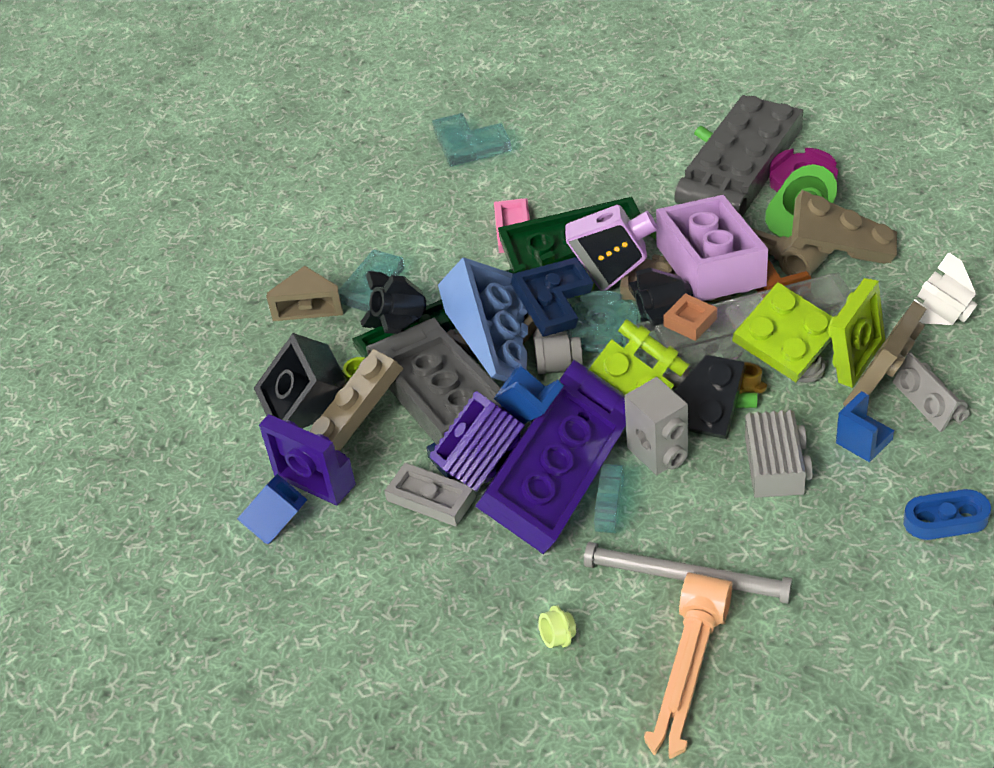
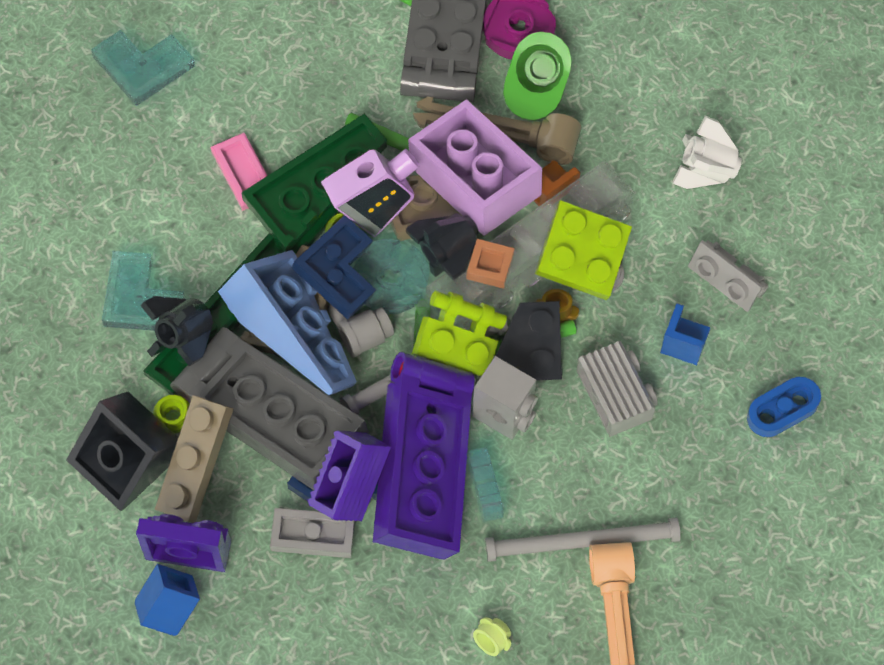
camera: 30 degrees left, 20 degrees up
(304, 296) = (69, 333): dark tan slope -> none
(526, 396) = (382, 414): blue panel -> none
(836, 228) = (586, 103): dark tan wing -> none
(857, 332) = (647, 234): lime plate -> none
(892, 352) = (684, 235): dark tan wing -> none

